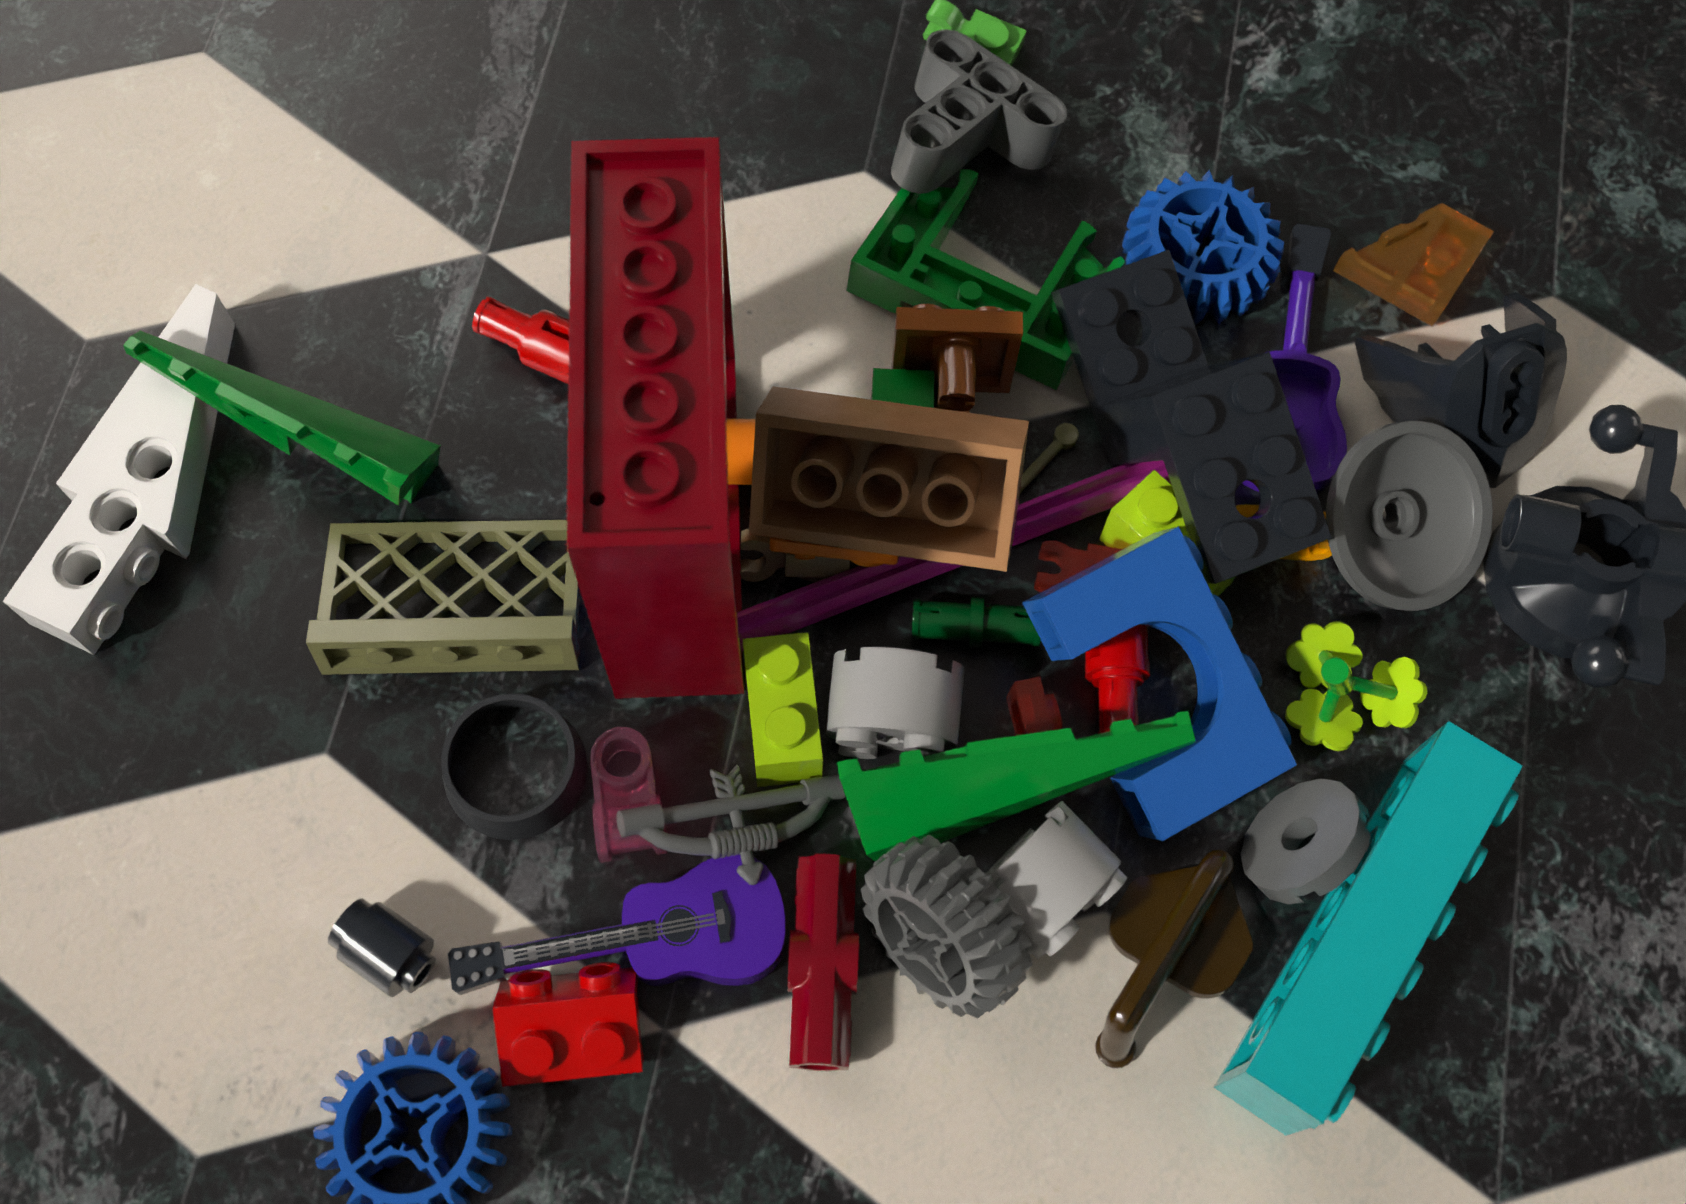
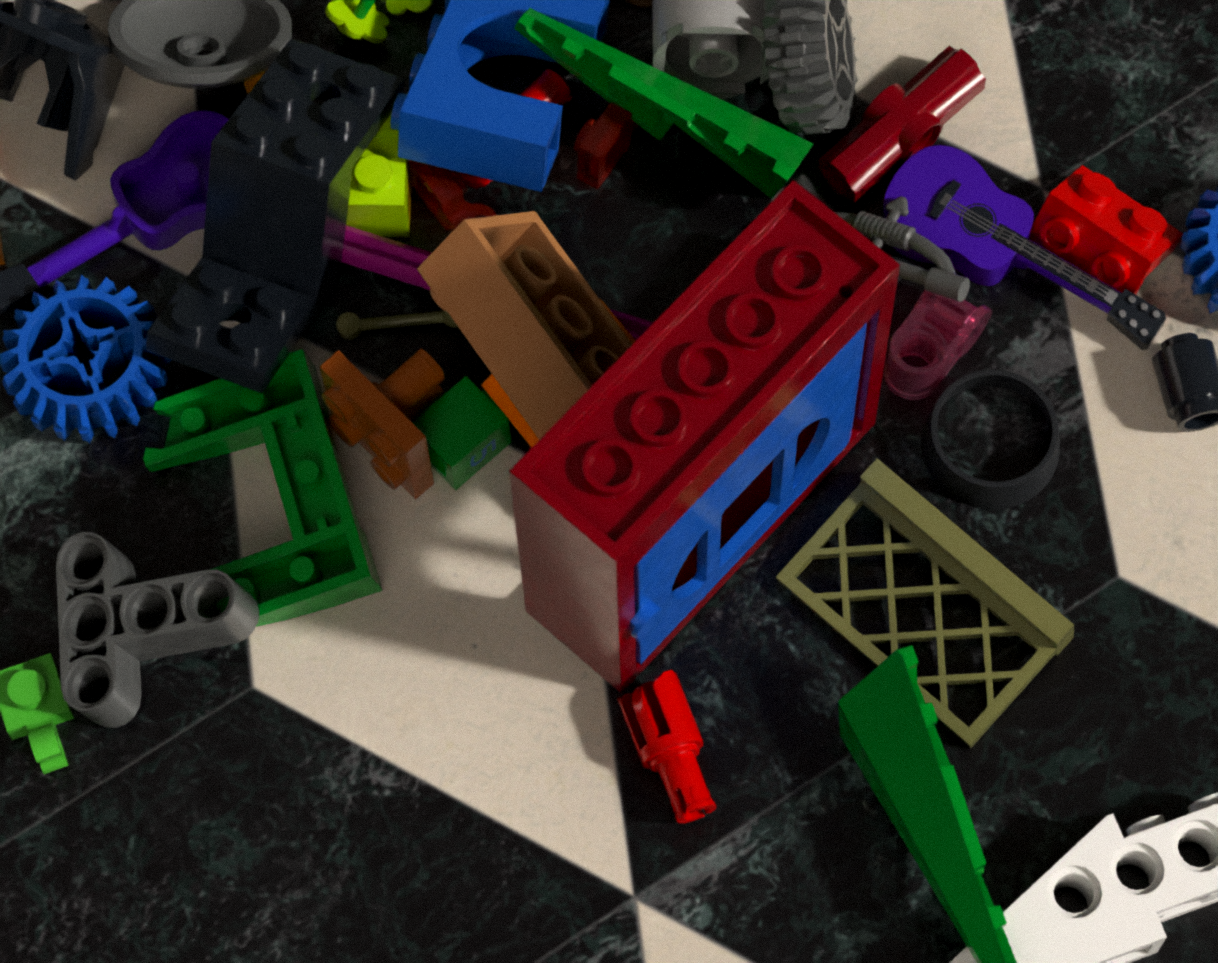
camera: 130 degrees left, 0 degrees up
(893, 703) = (689, 214): light grey brick -> none
(973, 622) = (575, 243): dark green pin -> none

